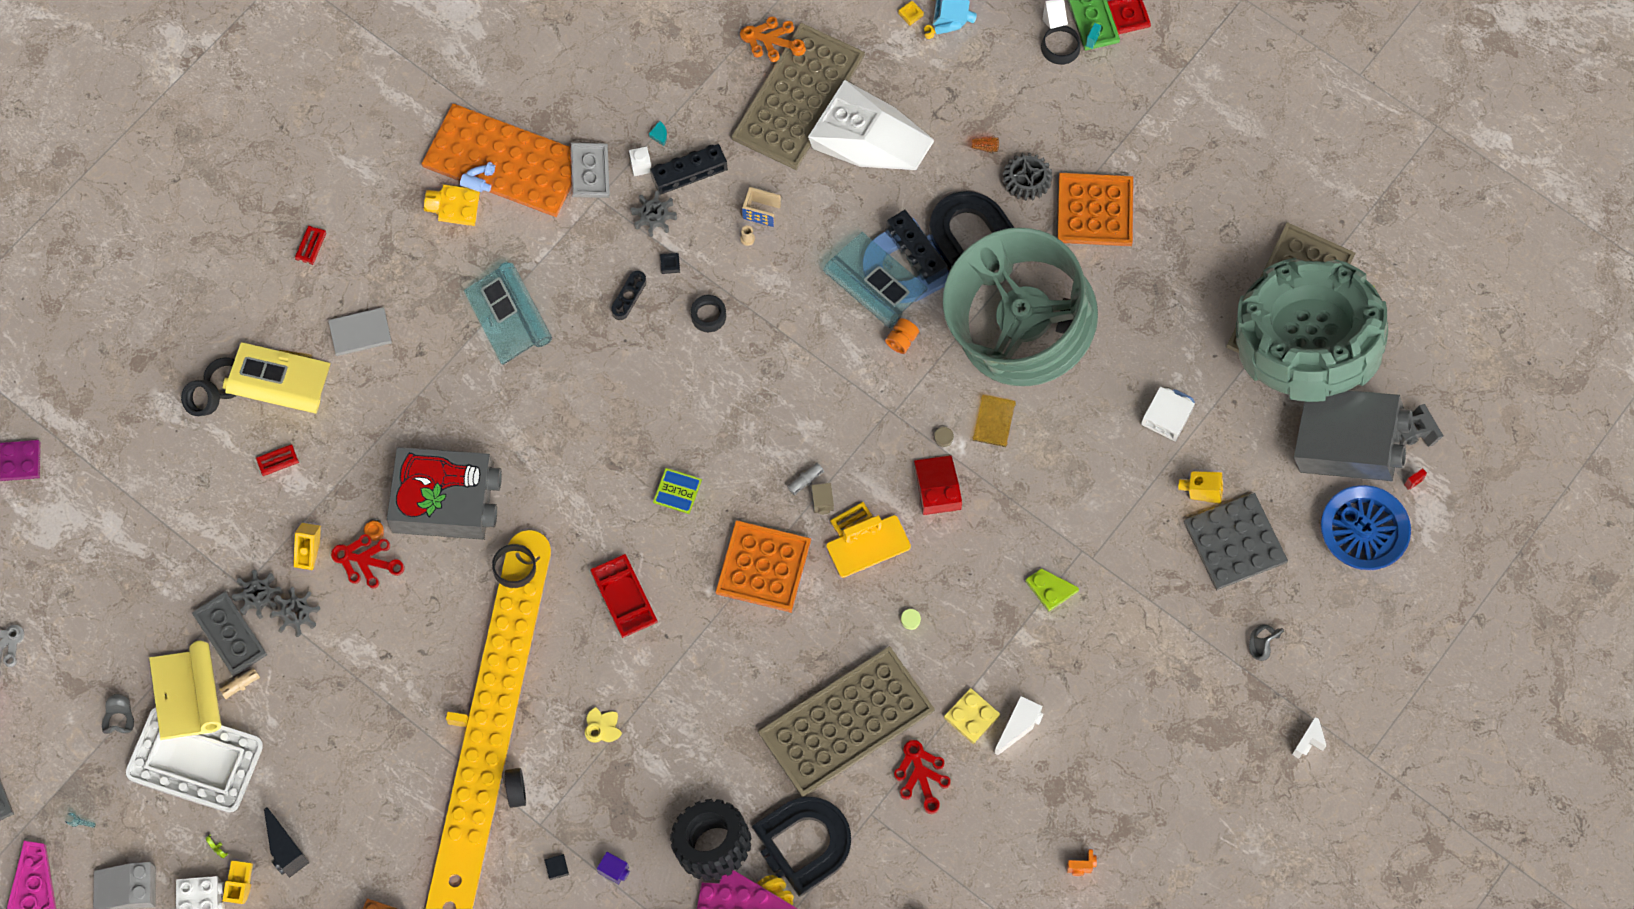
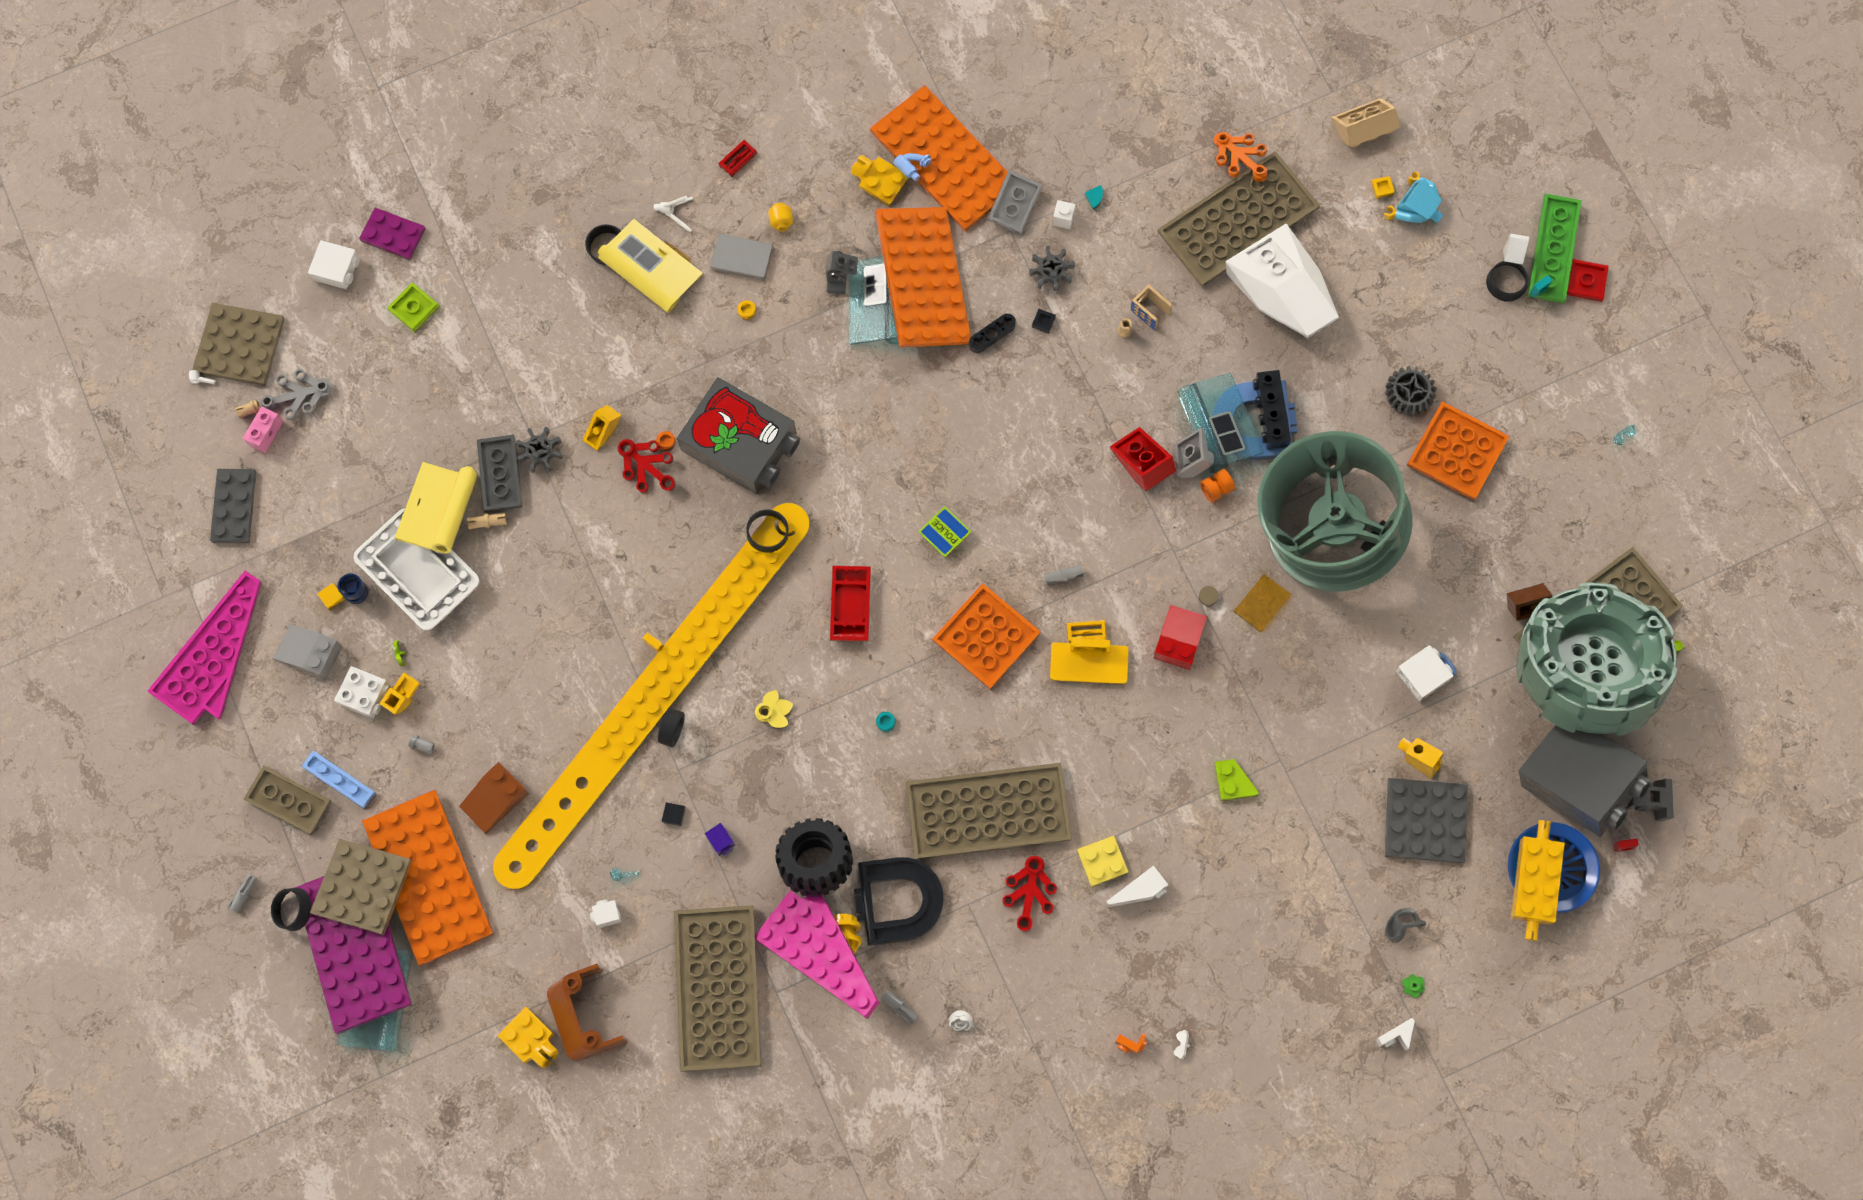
camera: 30 degrees right, 5 degrees up
(65, 520) = (413, 307): none -> lime tile
(77, 821) = (297, 574): clear light blue hand -> none
(117, 704) = (377, 490): dark grey piece -> none
(121, 825) = (330, 596): none -> yellow tile
(140, 807) = (352, 588): none -> dark blue wheel
(188, 402) = (586, 254): black tyre -> none
(267, 318) = (668, 209): none -> white plant
(280, 466) = (629, 341): red tile -> none
(285, 852) = (451, 682): black slope -> none
(289, 618) = (554, 478): dark grey gear -> none
(379, 279) = (780, 216): none -> yellow head
(389, 377) = (746, 310): none -> yellow tile
(457, 298) = (838, 265): none -> dark grey tile
(540, 273) = (922, 277): none -> orange plate
(689, 169) = (1104, 241): black brick -> none
(708, 300) = (1054, 369): black tyre -> none
(711, 687) = (885, 721): none -> teal tile
(822, 498) = (1069, 600): dark tan brick -> none
(824, 343) = (1143, 458): none -> red slope
(866, 318) = (1192, 455): none -> light grey slope
(910, 619) = (1092, 747): yellowish green tile -> none
(960, 203) = (1334, 387): black piece -> none
(988, 144) = (1388, 343): clear orange cone -> none
(1129, 849) = (1181, 1050): none -> white piece
(1223, 310) = (1524, 601): none -> reddish brown brick
(1231, 125) = (1629, 431): none -> clear light blue piece
(1304, 694) = (1408, 984): none -> bright green plant
(1359, 544) = (1537, 880): none -> yellow brick

